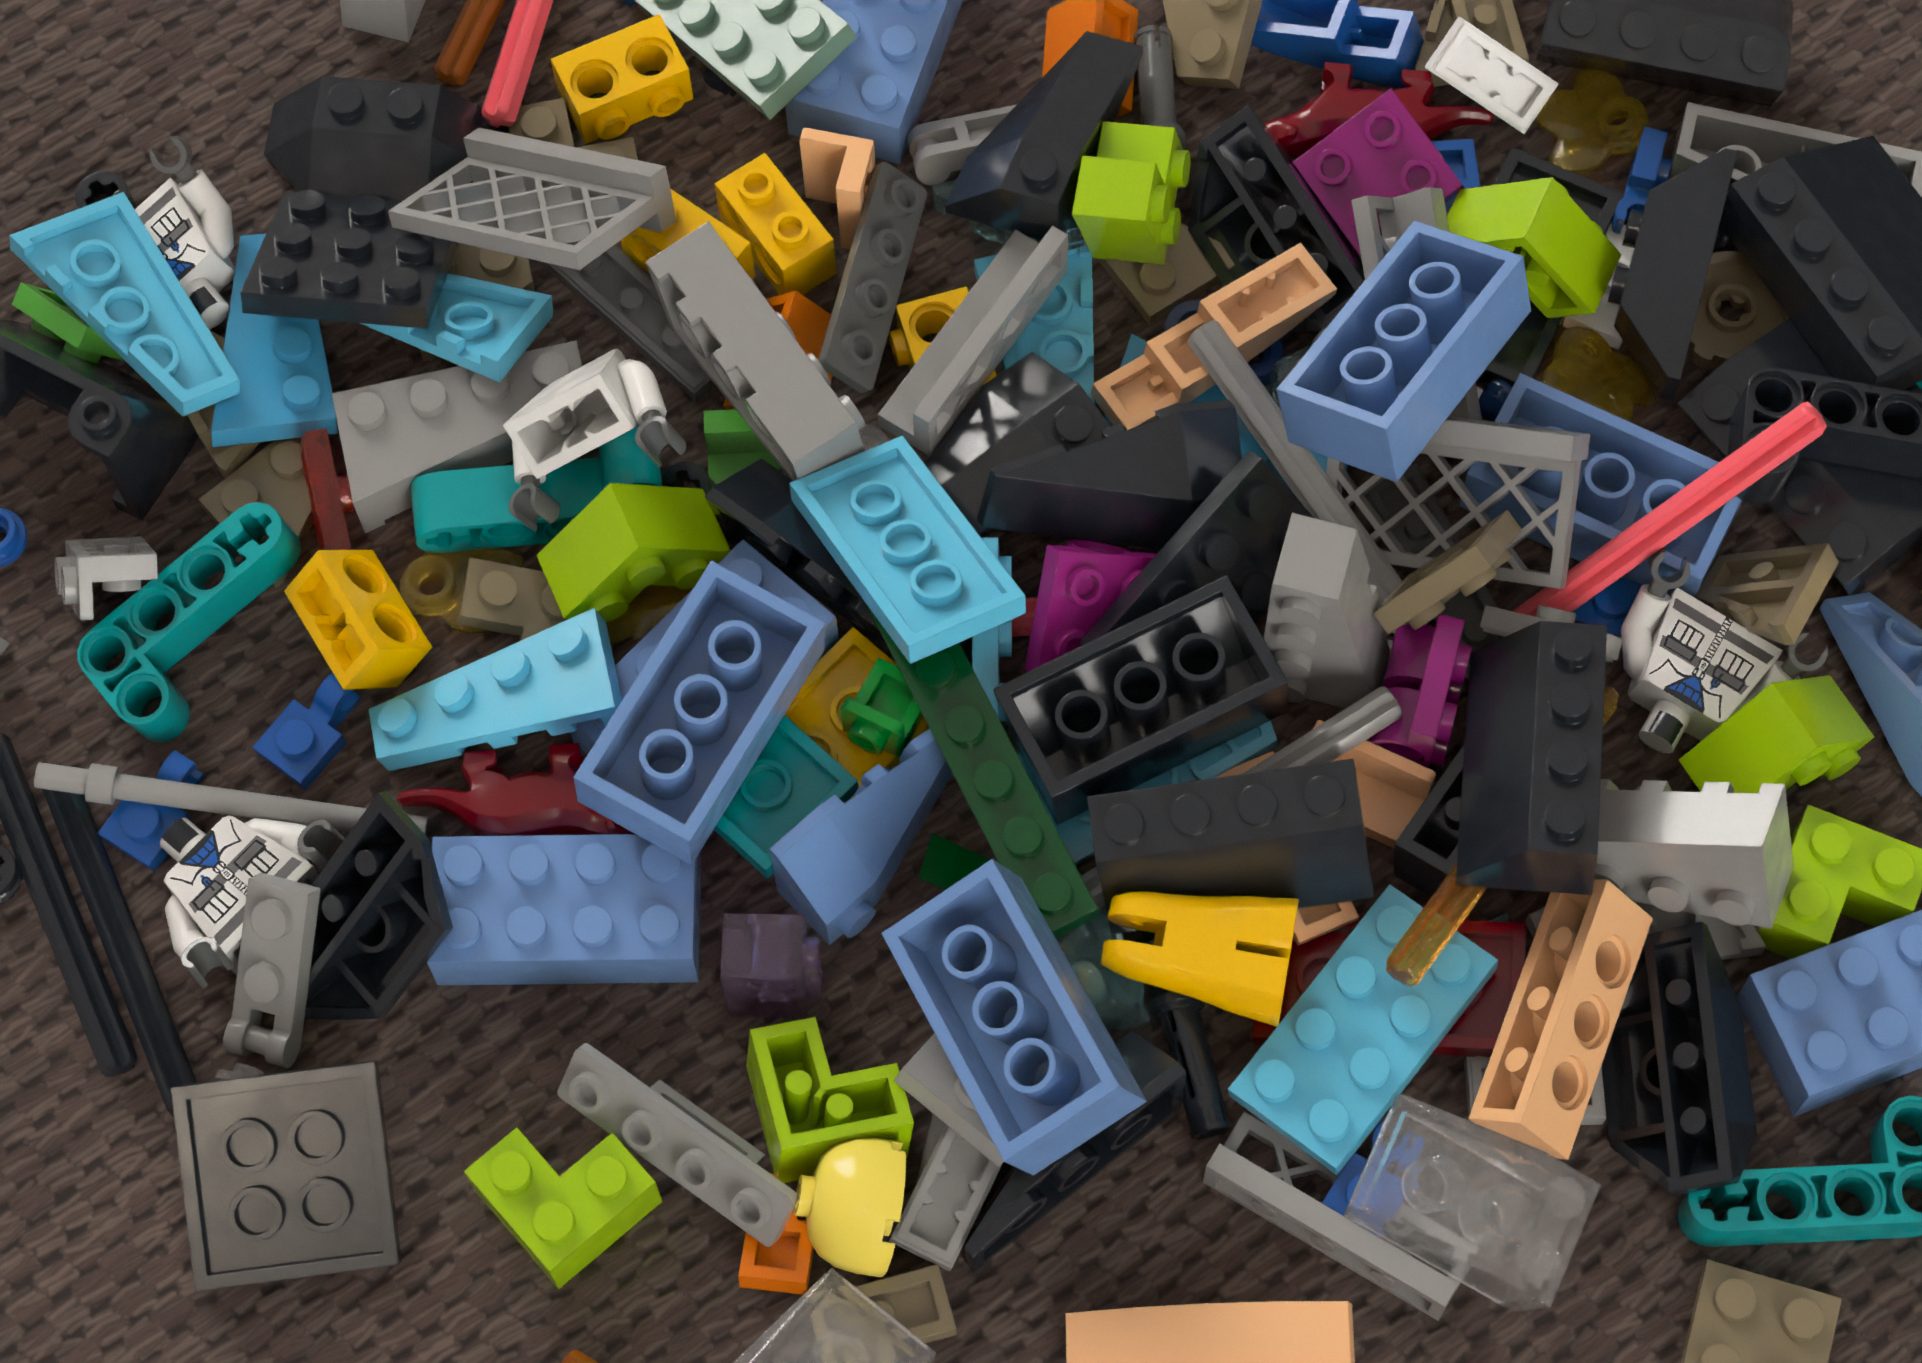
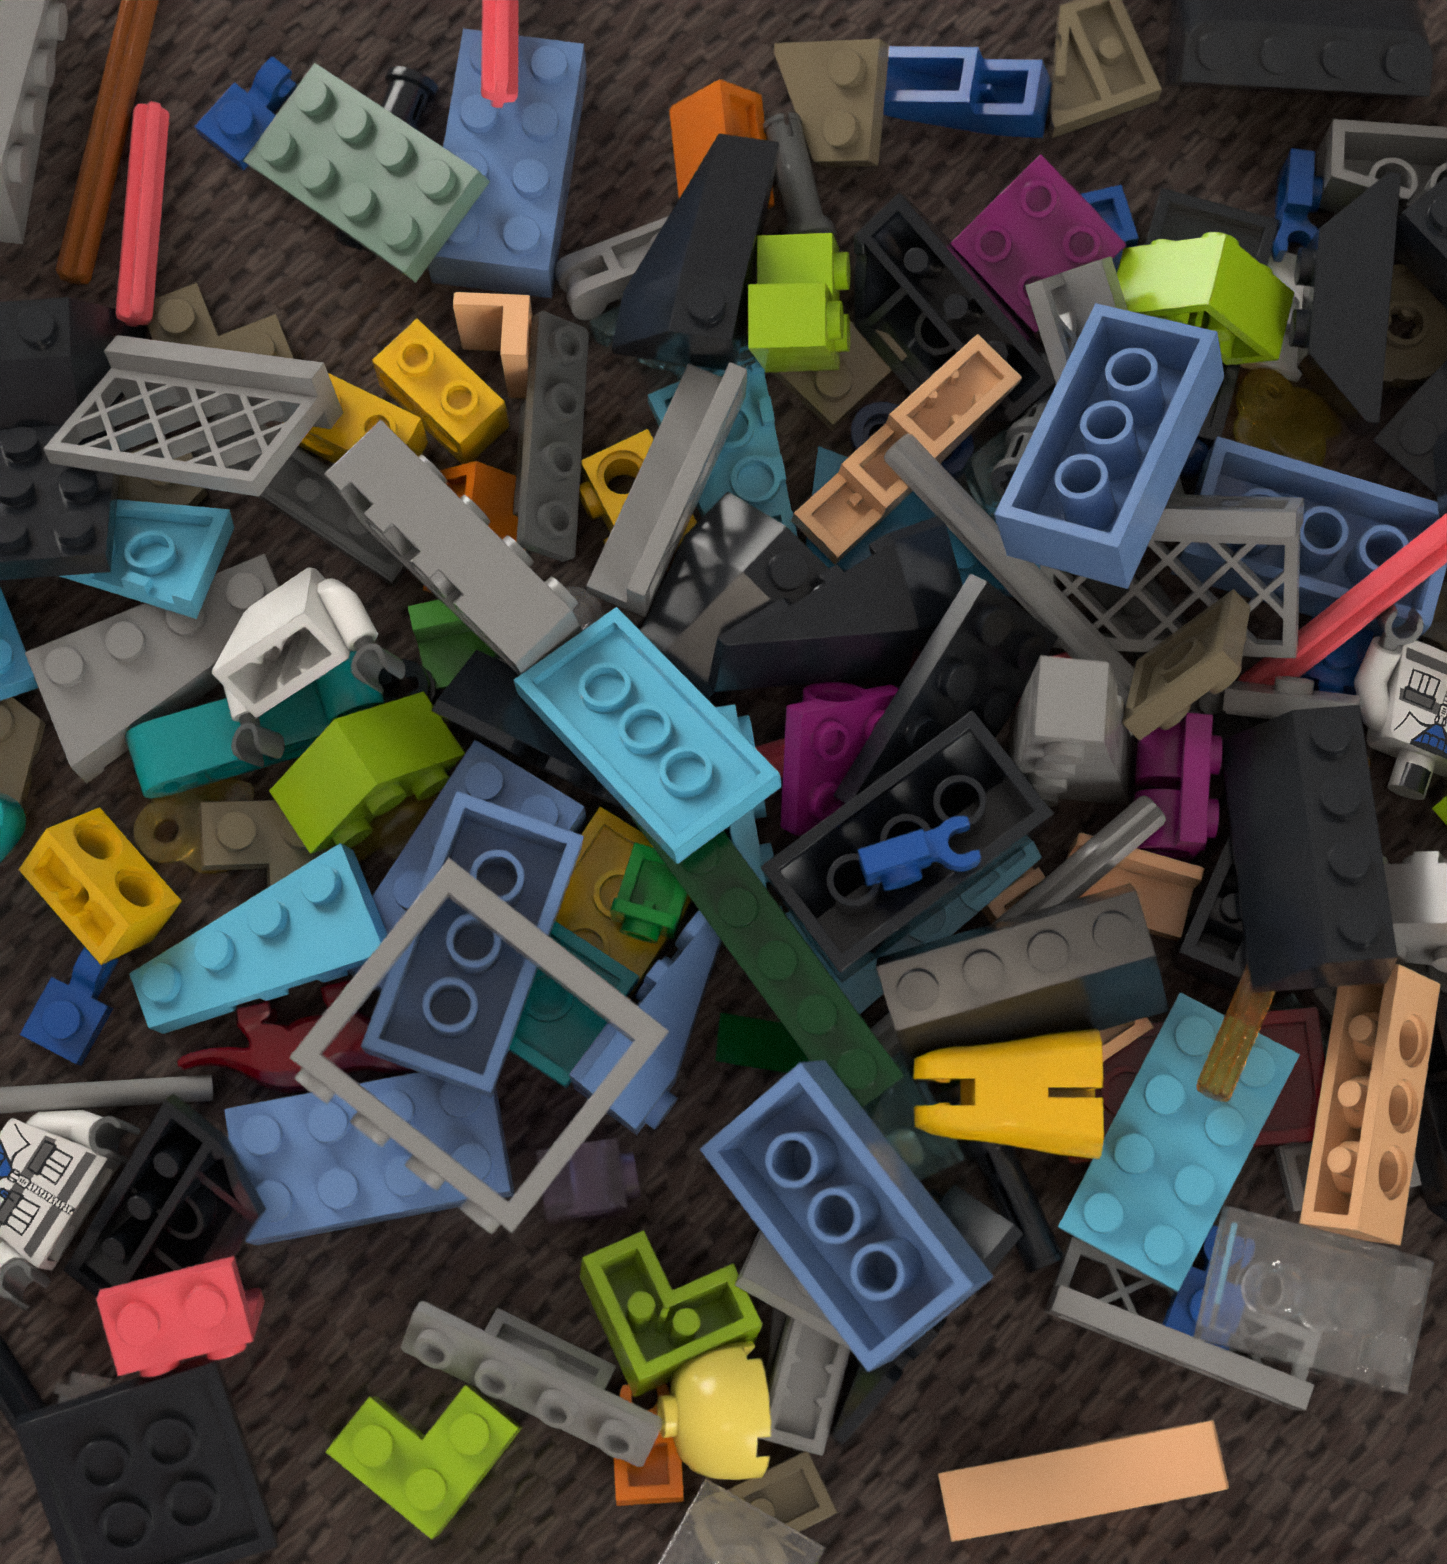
camera: 15 degrees left, 10 degrees up
(273, 969) = (87, 1257): light grey plate -> none
(327, 493) = (43, 760): clear red plate -> none
(349, 1009) = (179, 1317): none -> coral bracket
(617, 68) = (242, 243): yellow brick -> none
(617, 888) = (381, 1122): none -> light grey window
(1132, 692) = (900, 859): none -> blue plate
(1339, 103) = (988, 172): dark red animal -> none
(1491, 75) = (1129, 115): white plate -> none
(1583, 118) = (1222, 145): clear yellow plate -> none

